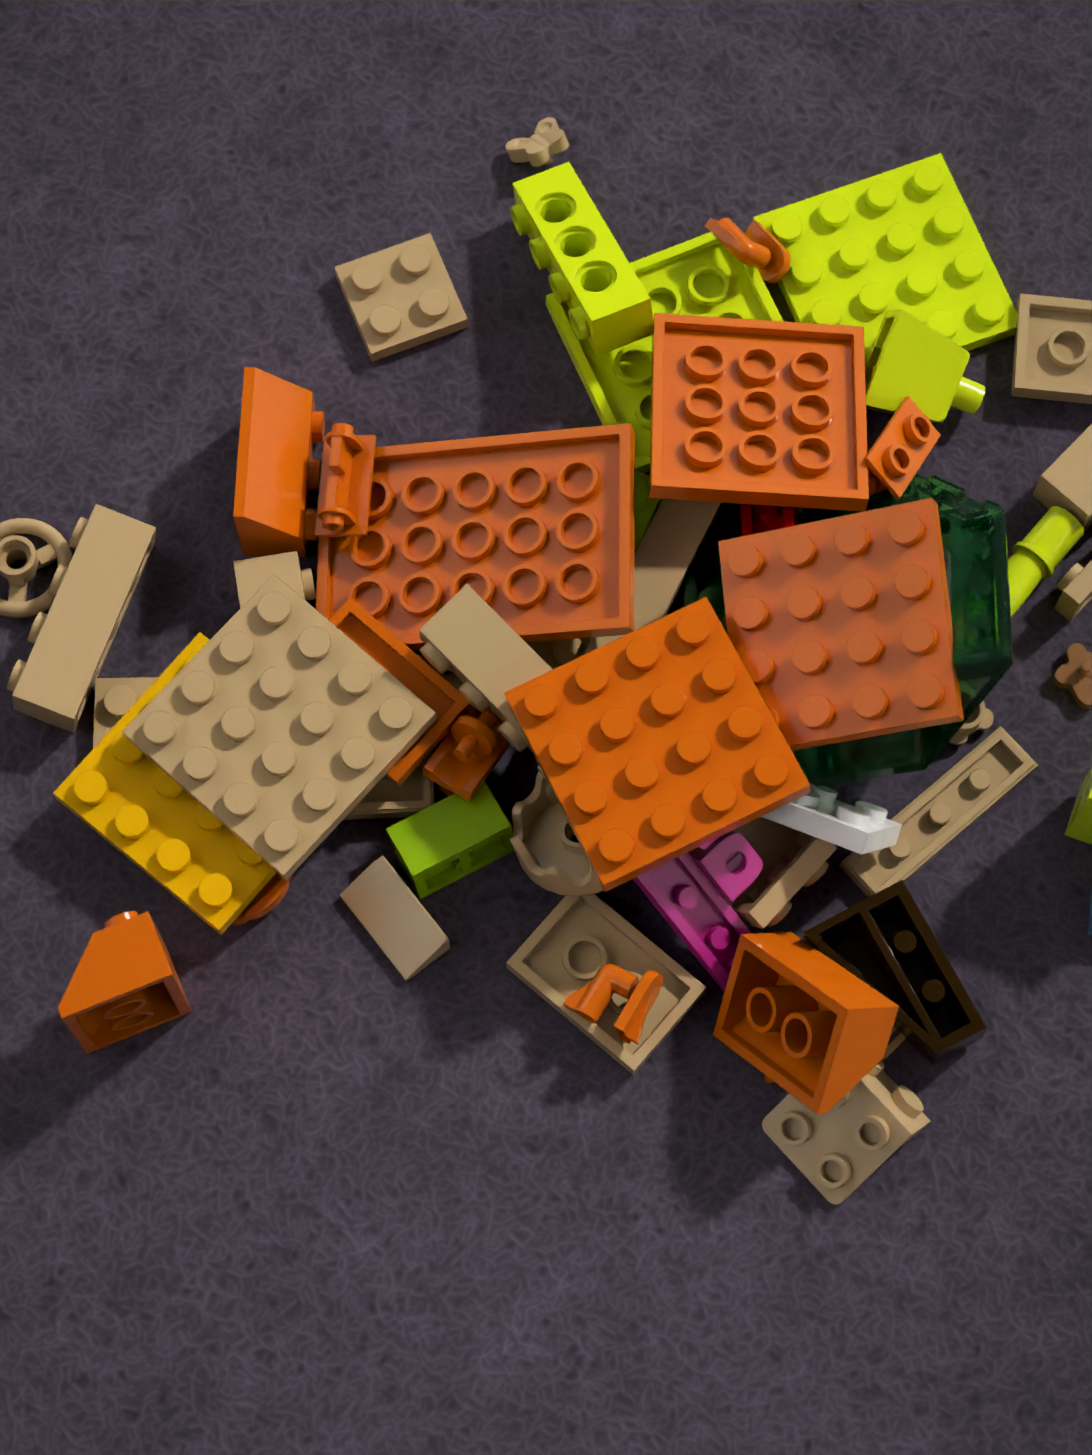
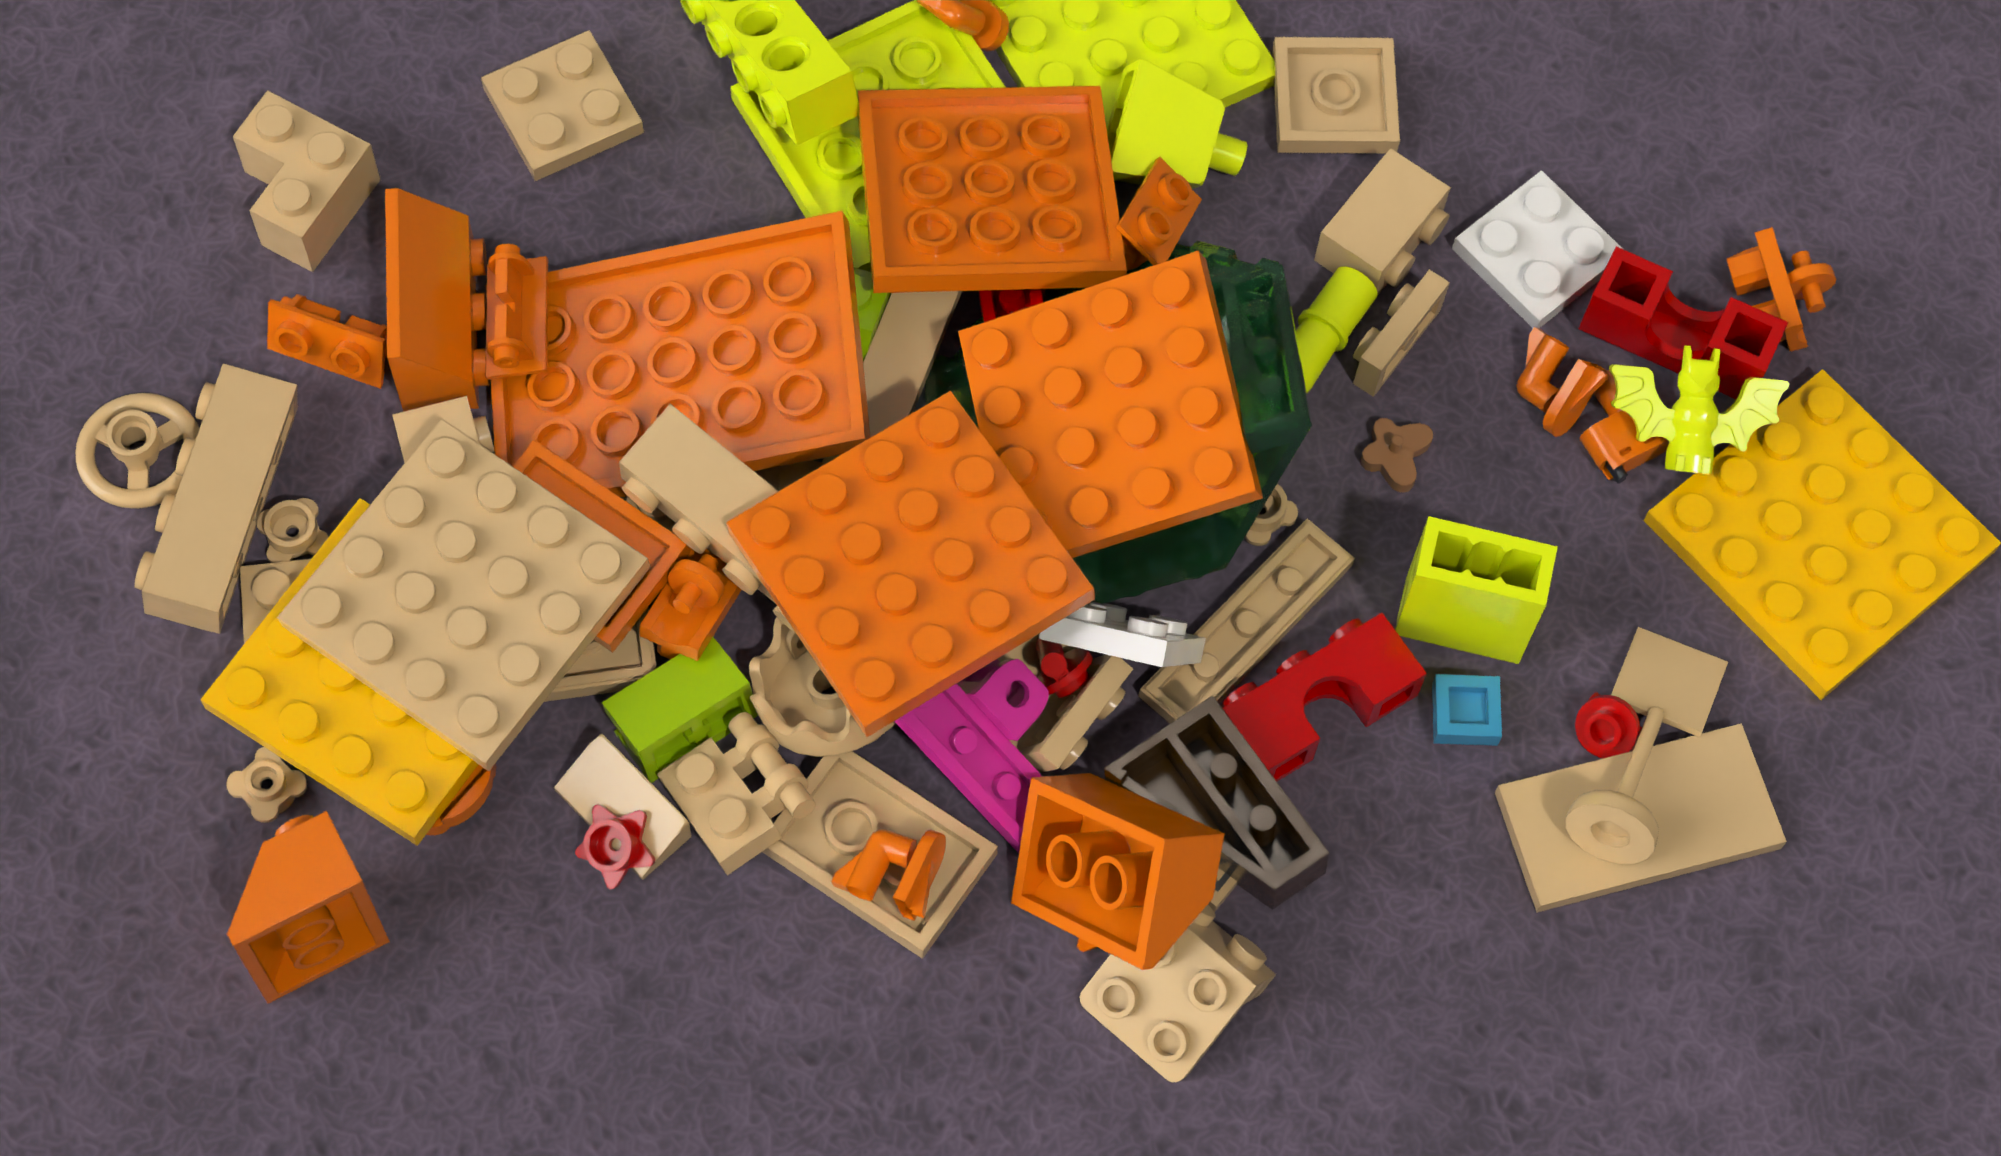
camera: 10 degrees left, 5 degrees down
(101, 884) = (267, 803): none -> tan plate
(136, 637) = (287, 515): none -> tan plate
(170, 479) = (316, 337): none -> orange hinge
(186, 342) = (312, 175): none -> tan brick
(372, 955) = (598, 844): none -> plate
(477, 928) = (721, 806): none -> tan plate
(776, 842) = (1062, 671): none -> red plate
(1034, 863) = (1361, 666): none -> red arch

